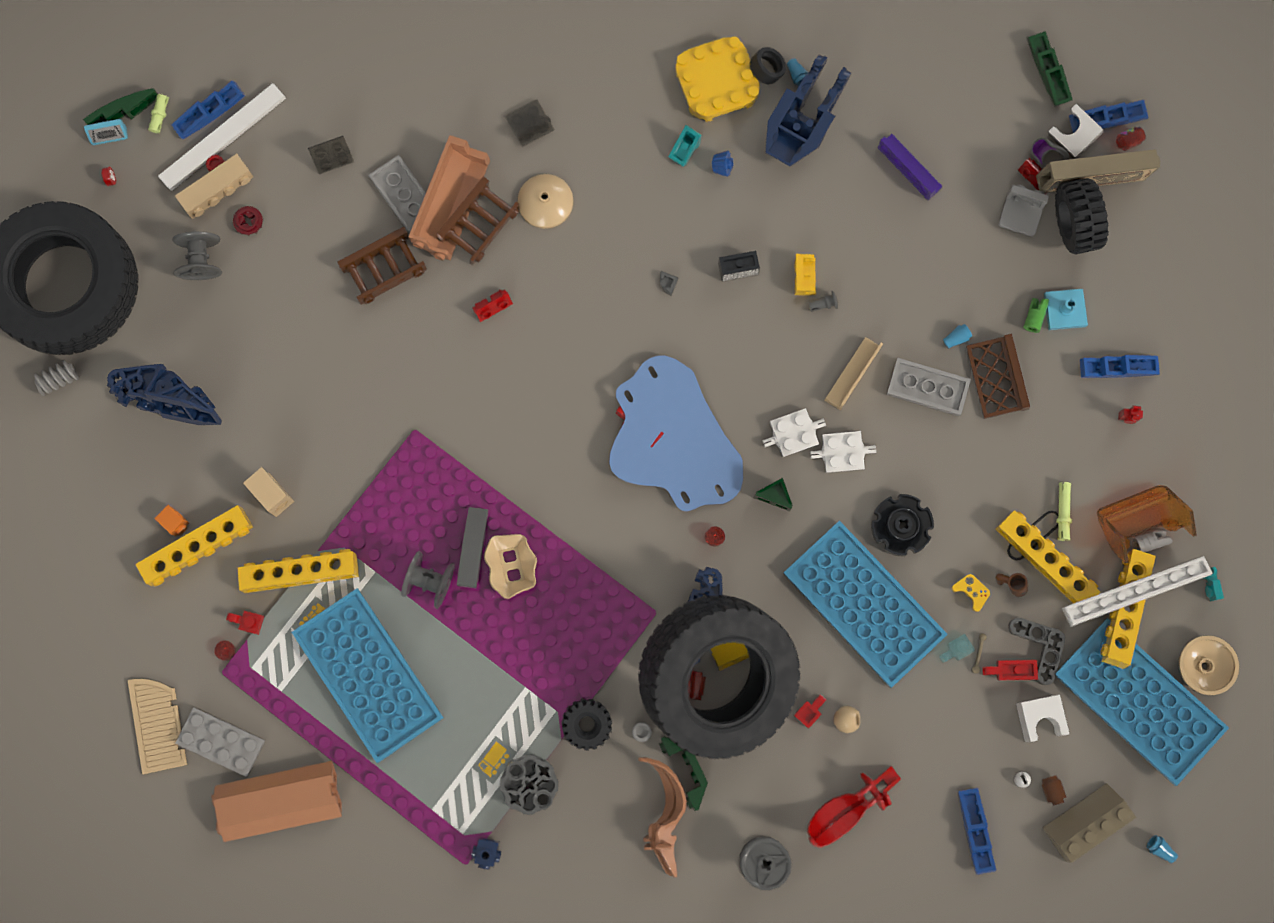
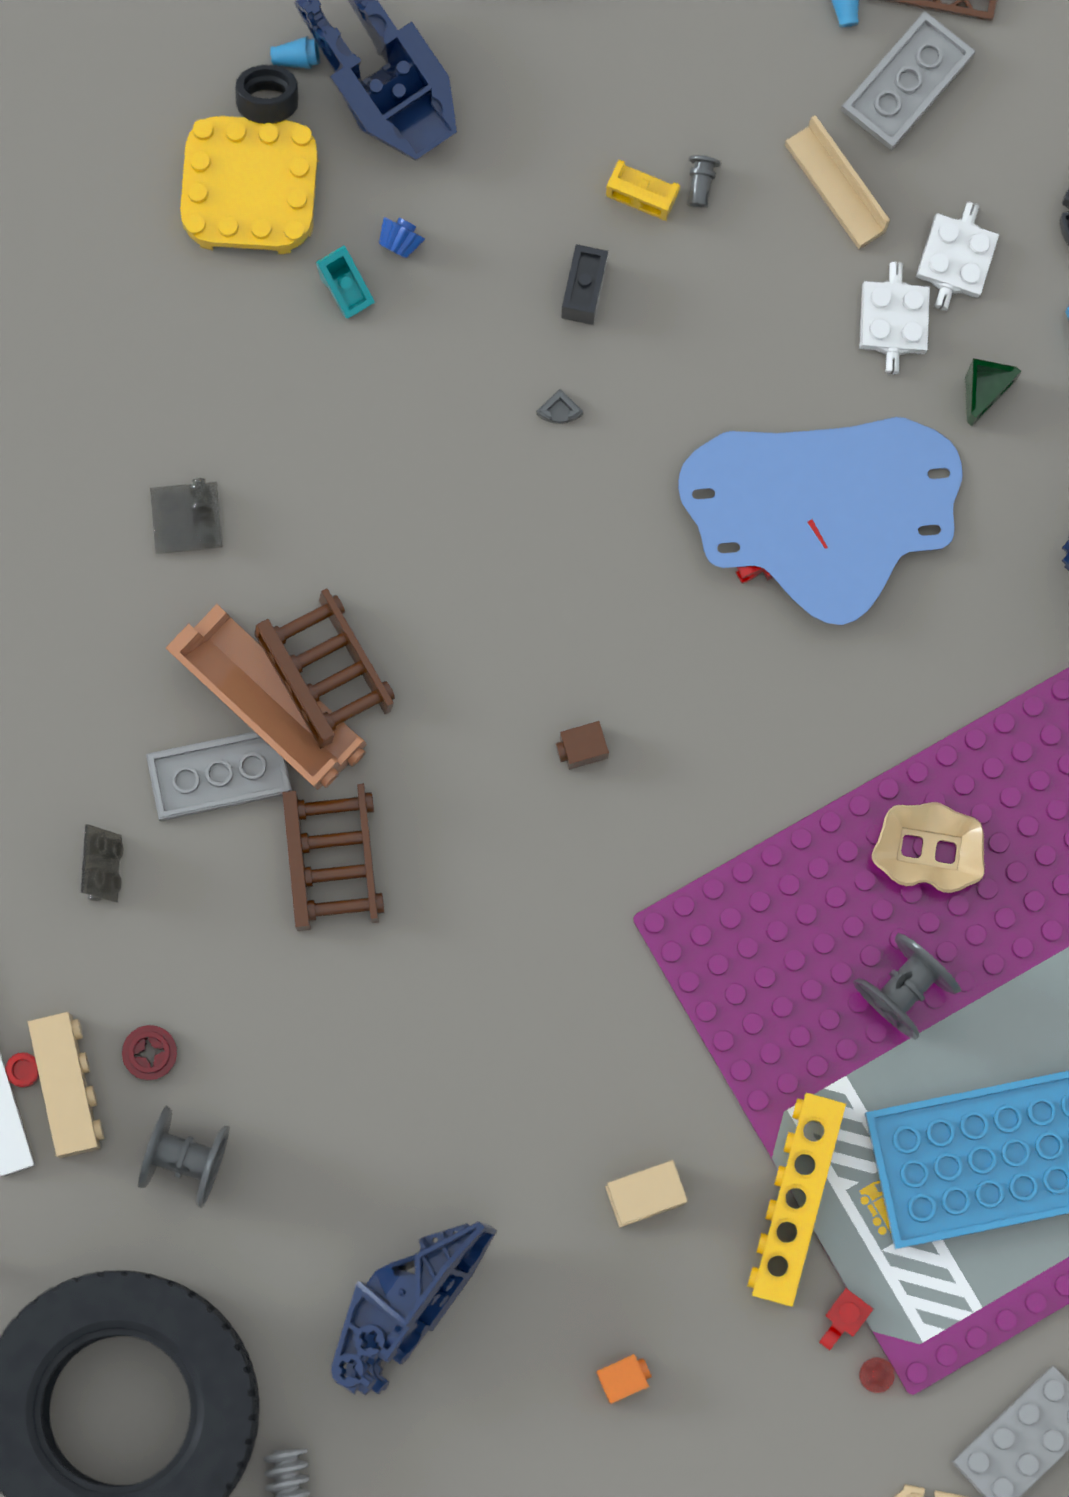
camera: 70 degrees left, 0 degrees up
(149, 566) = (684, 1448): yellow brick -> none
(472, 547) = (877, 897): dark grey slope -> none
(486, 309) = (475, 689): red hinge -> none
(492, 366) = (582, 745): none -> reddish brown brick
(549, 211) = (340, 568): tan dish -> none
(714, 536) = (1011, 510): clear red tile -> none

